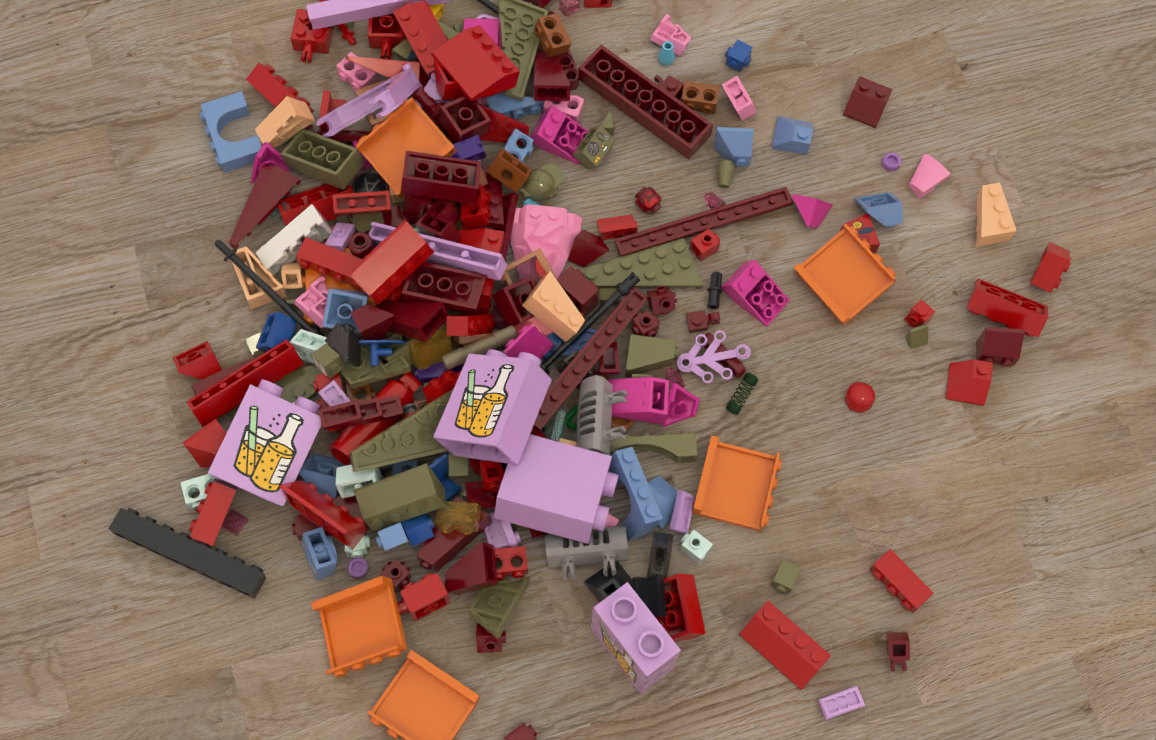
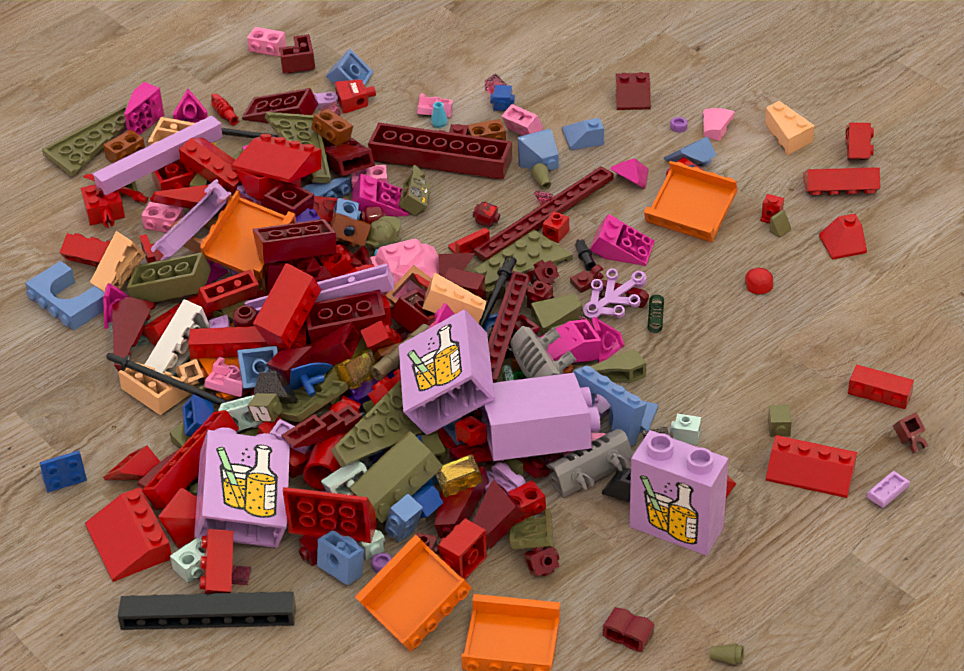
camera: 20 degrees left, 25 degrees down
(138, 341) = (63, 471): none -> blue bracket
(158, 437) = (128, 535): none -> red slope
(542, 155) = (371, 214): none -> dark red head
(682, 512) = (658, 408): lavender plate -> none
(736, 485) = (693, 377): orange panel -> none
(743, 33) = (492, 81): none -> clear pink slope
(1000, 345) = (853, 198): dark red slope -> none

